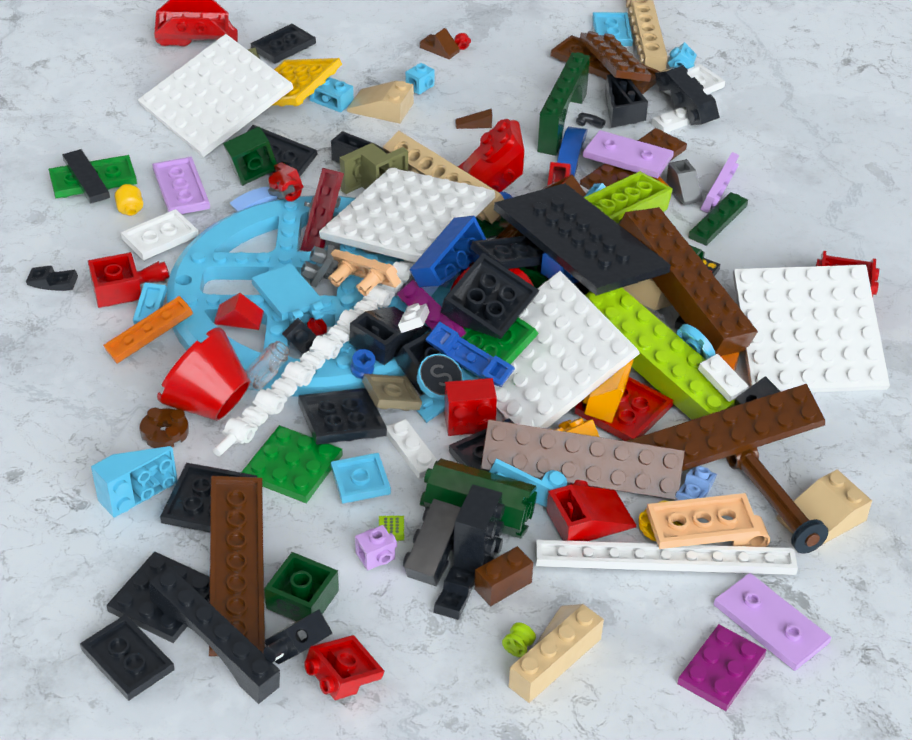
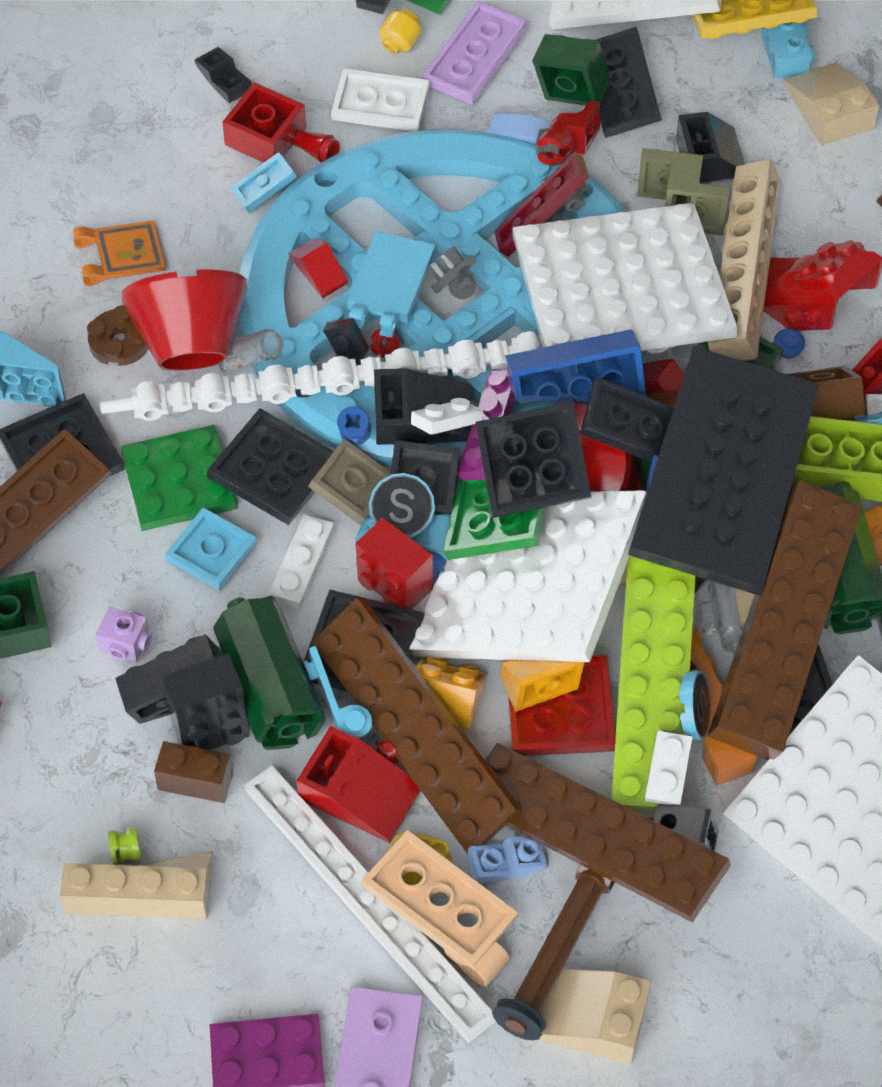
camera: 50 degrees right, 15 degrees up
(109, 388) = (122, 251): none -> orange flag
(148, 329) = (224, 211): orange plate -> none
(371, 270) = (481, 305): light nougat plate -> none
(393, 525) = (173, 627): lime tile -> none
(455, 593) = (138, 748): black slope -> none
(469, 356) = (451, 508): blue slope -> none

